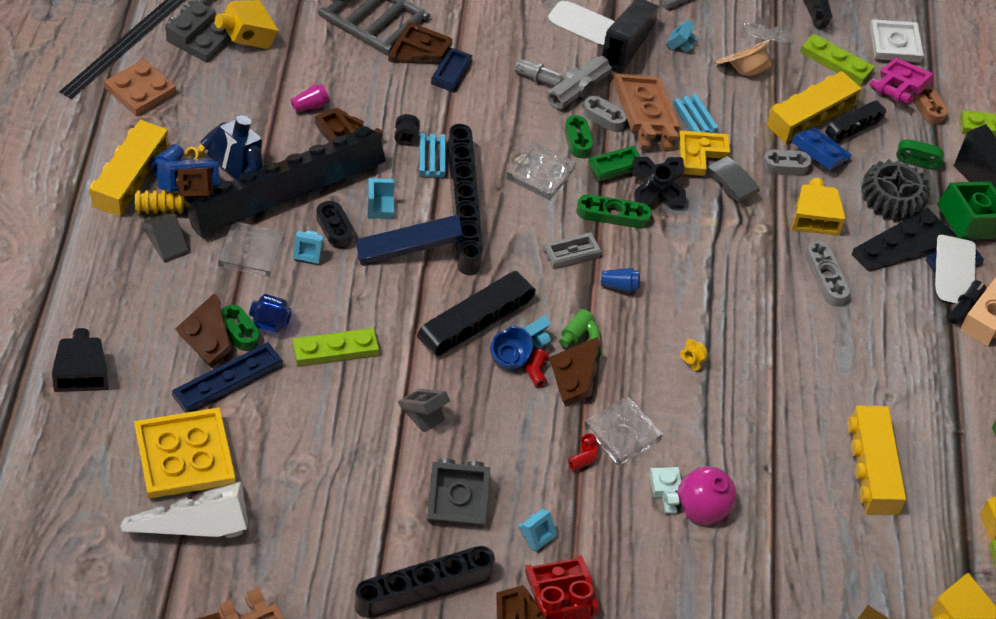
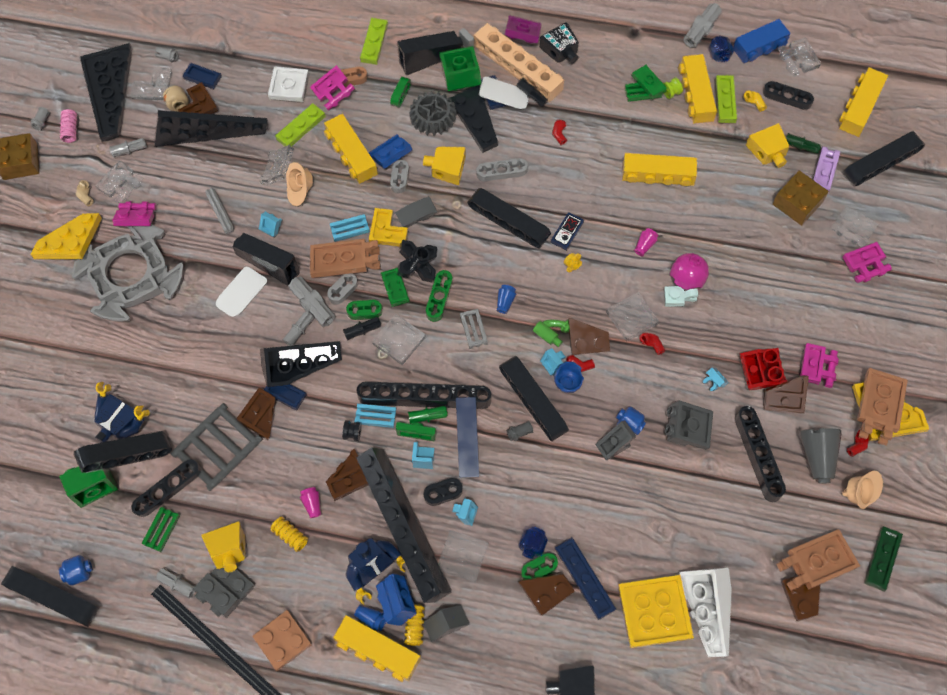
camera: 75 degrees left, 15 degrees up
(195, 181) = (420, 590): reddish brown bracket -> none
(268, 81) = (289, 534): none -> yellow piece
(335, 347) = (558, 500): lime plate -> none
(414, 193) = (416, 431): none -> green plate
(424, 295) = (519, 431): none -> dark grey pin
(438, 202) = (427, 414): none -> green axle
(456, 422) = (633, 418): none -> blue head
(491, 68) = (290, 363): none -> black wedge
(550, 133) = (361, 328): none -> black axle
(745, 351) = (567, 231): none -> tile
(748, 280) = (509, 218): none -> black beam
(749, 443) = (646, 241): none -> dark pink cone
(855, 121) = (366, 125): black beam -> none
(910, 335) = (557, 131): none -> red arm

